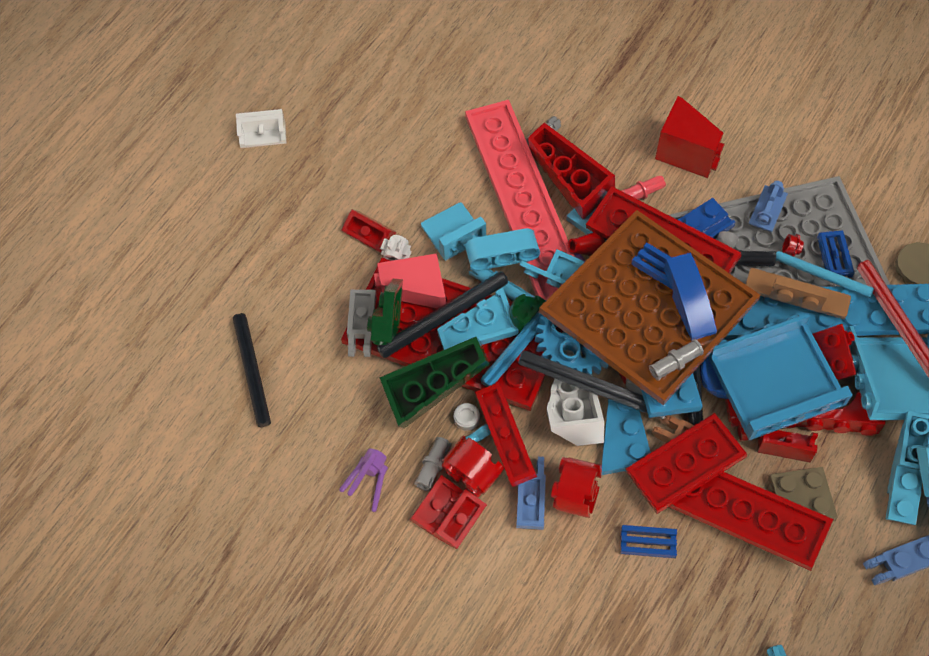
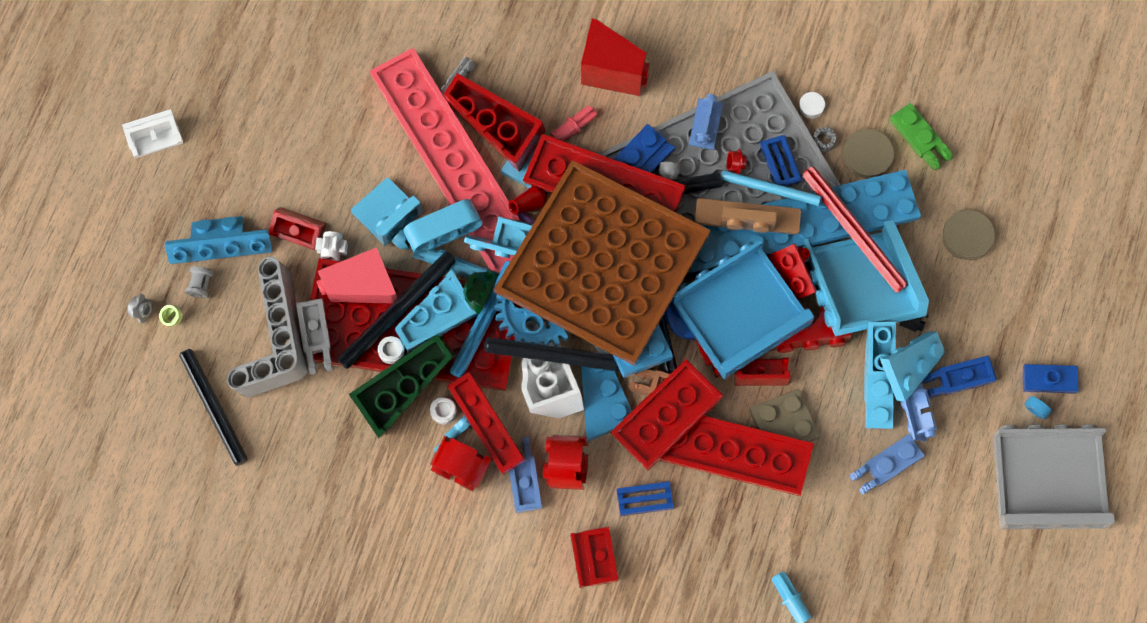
camera: 15 degrees left, 10 degrees up
(208, 269) = (140, 308): none -> light grey plate
(234, 279) = (168, 312): none -> yellowish green hinge
(268, 258) = (199, 282): none -> light grey bush
(294, 226) = (218, 240): none -> dark azure bracket
(330, 339) = (279, 332): none -> light grey beam
(370, 464) = (358, 481): medium lavender plant -> none
(386, 318) = (341, 328): dark green plate -> none
(428, 346) = (391, 349): none -> white tile
(432, 464) = (420, 467): light grey pin -> none
(448, 512) = (446, 512): red slope -> none
(460, 257) = (400, 240): none -> medium azure hinge
(586, 588) = (594, 557): none -> red plate
(654, 257) = (591, 203): blue tile -> none
(676, 359) = (638, 319): light grey pin -> none
(690, 296) = (641, 249): blue slope -> none
(871, 213) = (811, 105): none -> white tile
(885, 242) = (829, 135): none -> light grey bush

